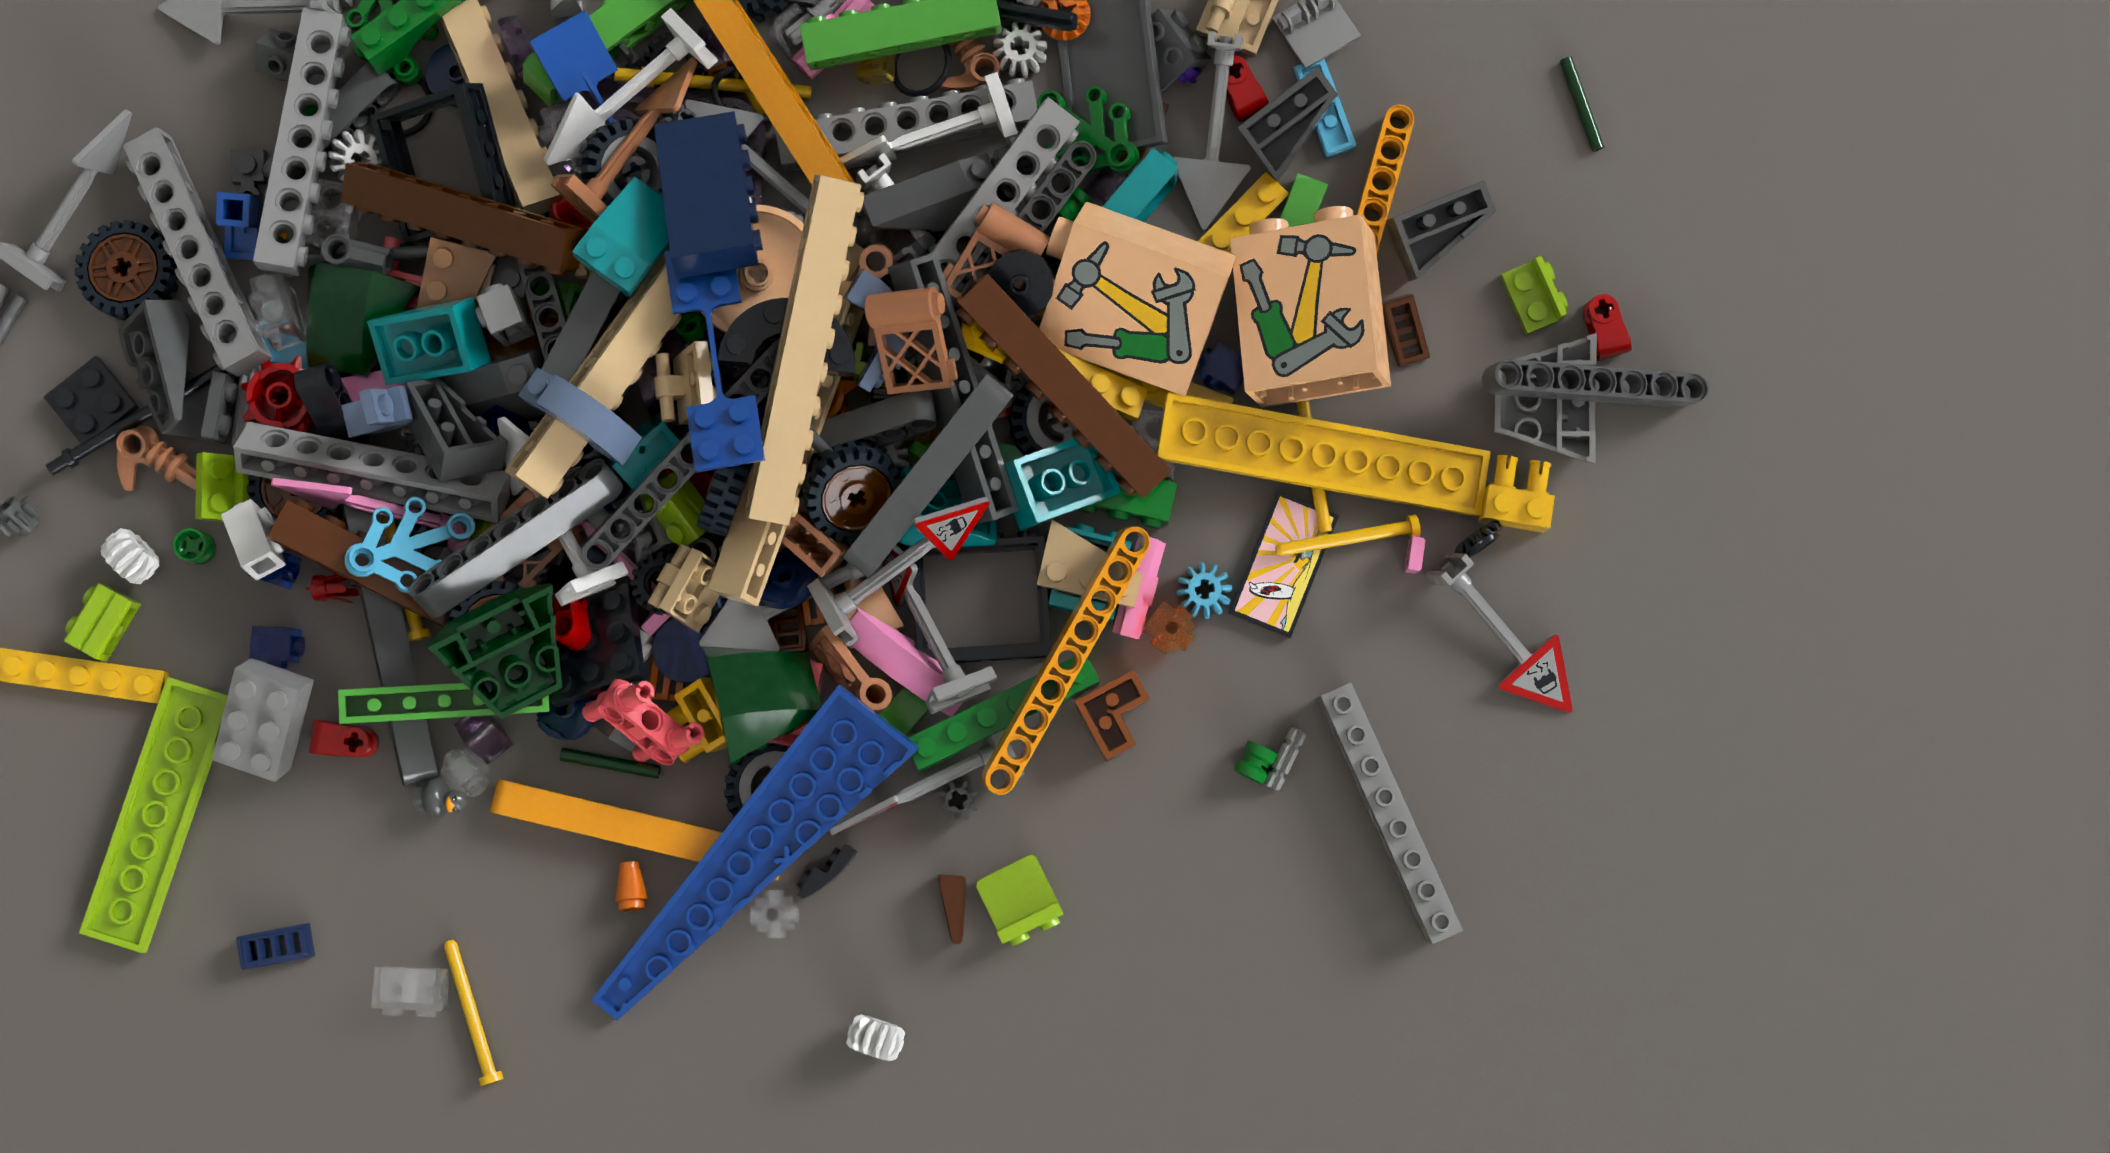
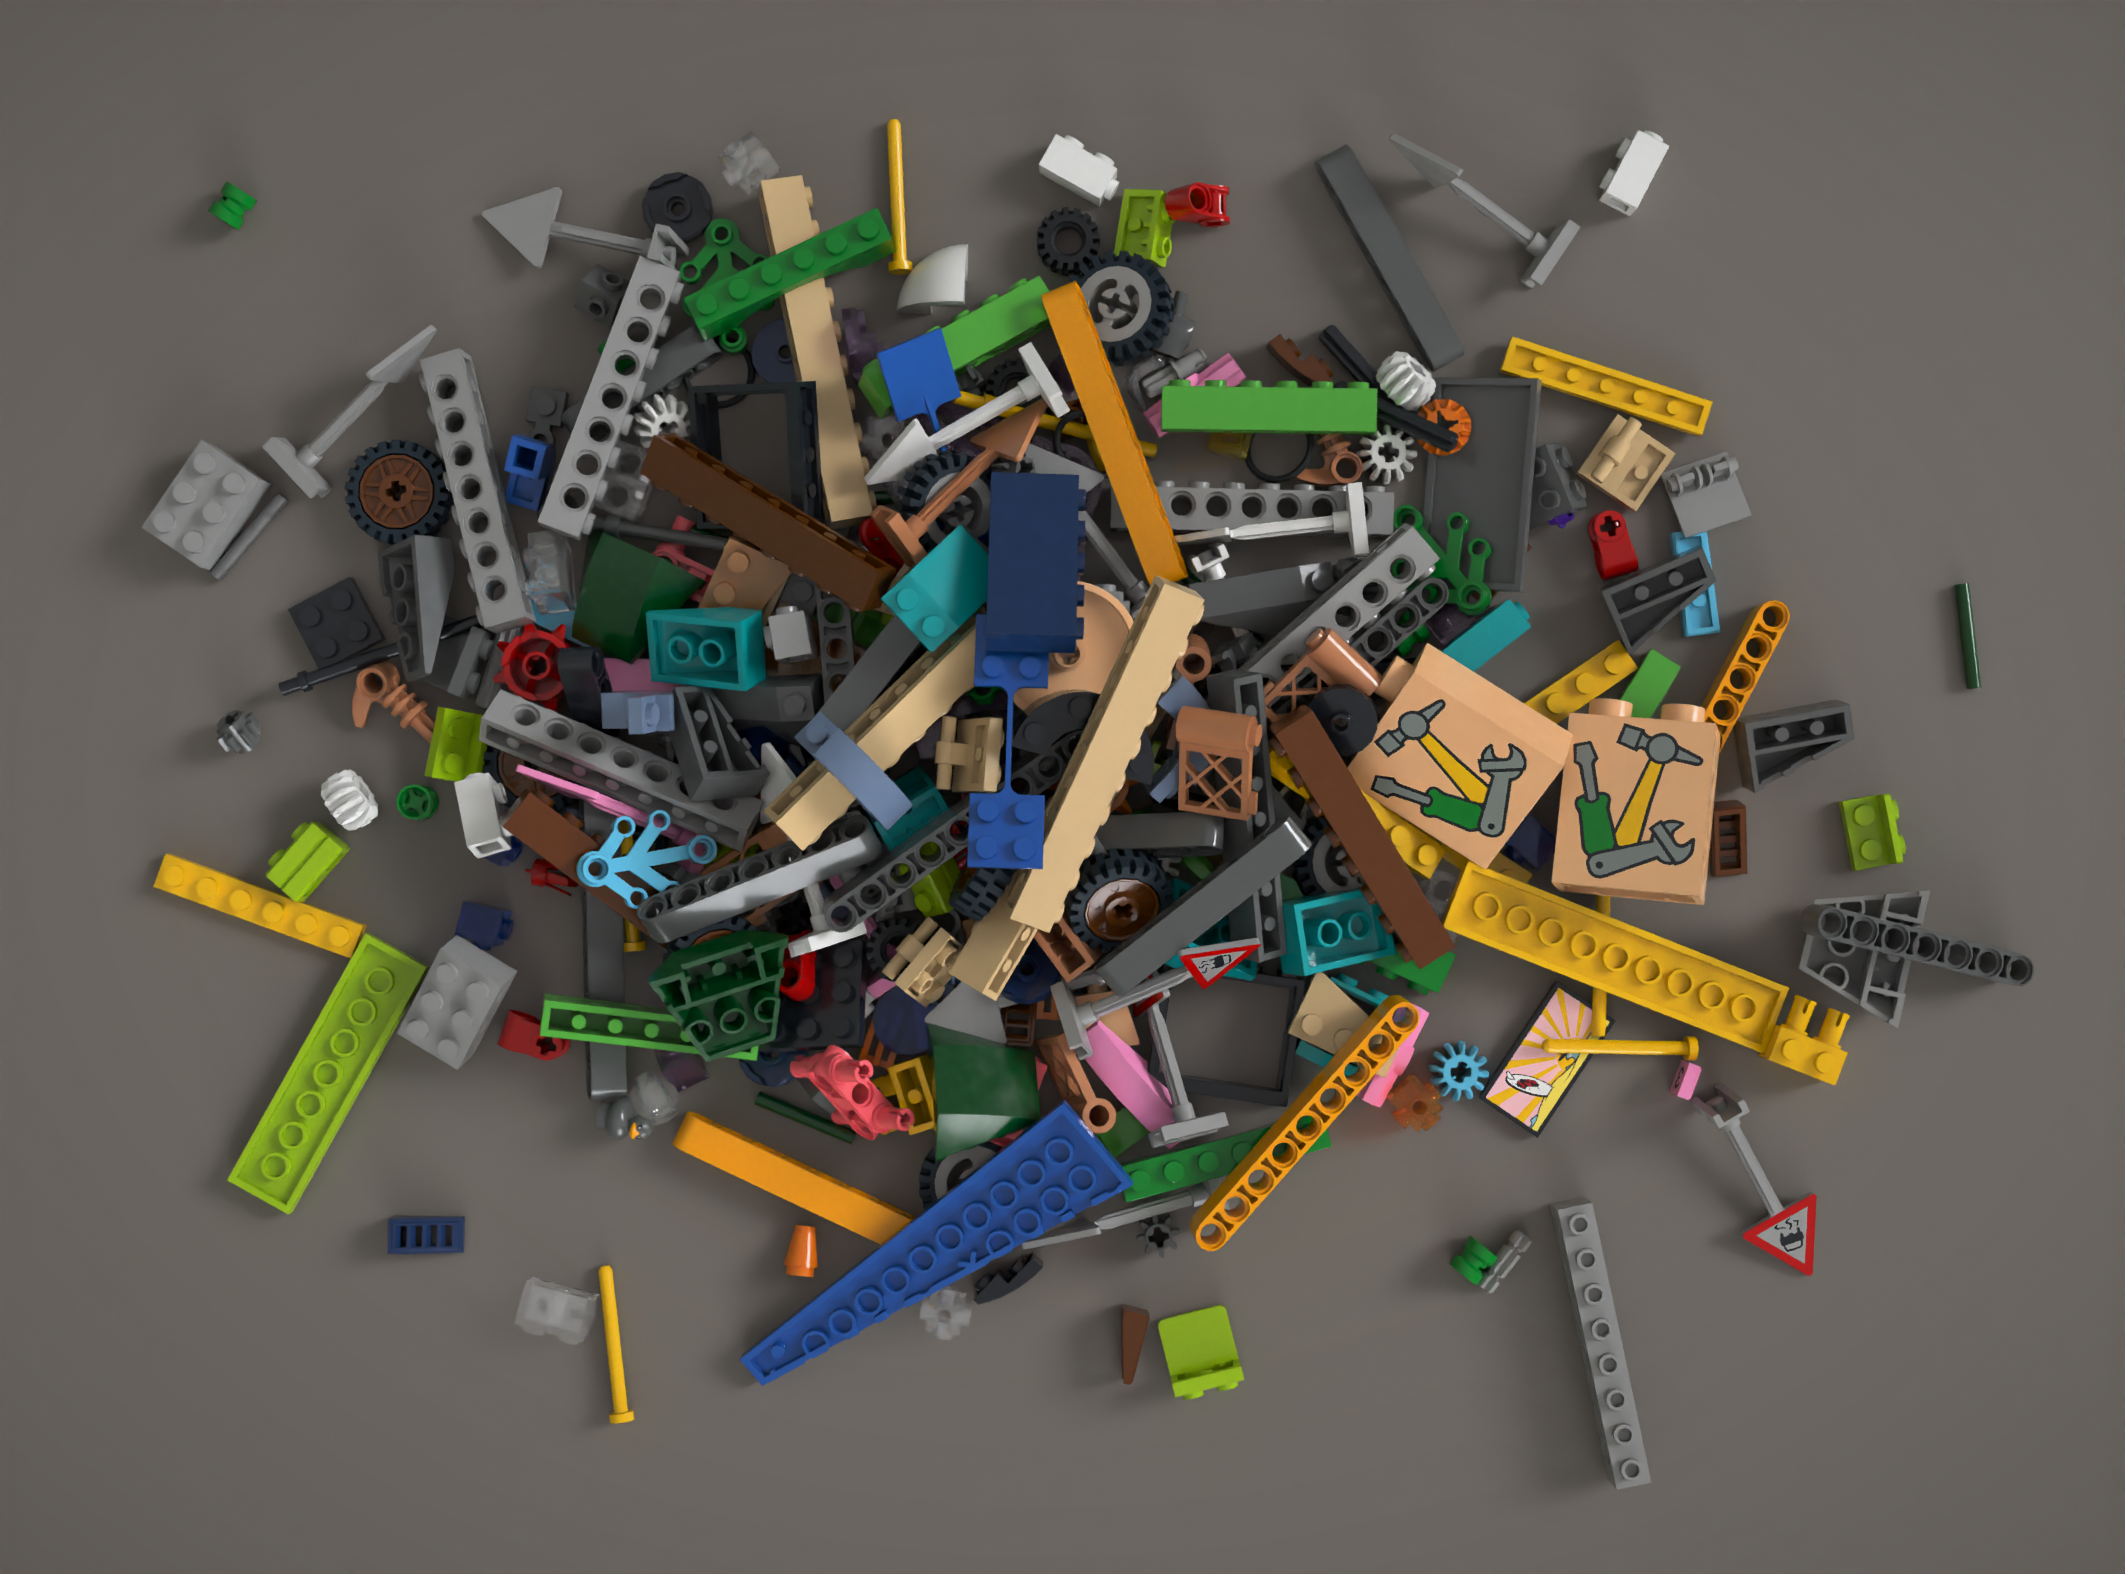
camera: 15 degrees right, 5 degrees up
(358, 254) = (649, 535): dark grey piece -> none
(875, 1037) = (1024, 1461): white gear -> none
(1104, 709) = (1329, 1175): dark orange brick -> none
(1209, 180) = (1557, 638): light grey piece -> none
(1480, 539) = (1757, 1080): black gear -> none
(1610, 329) = (1944, 881): red piece -> none

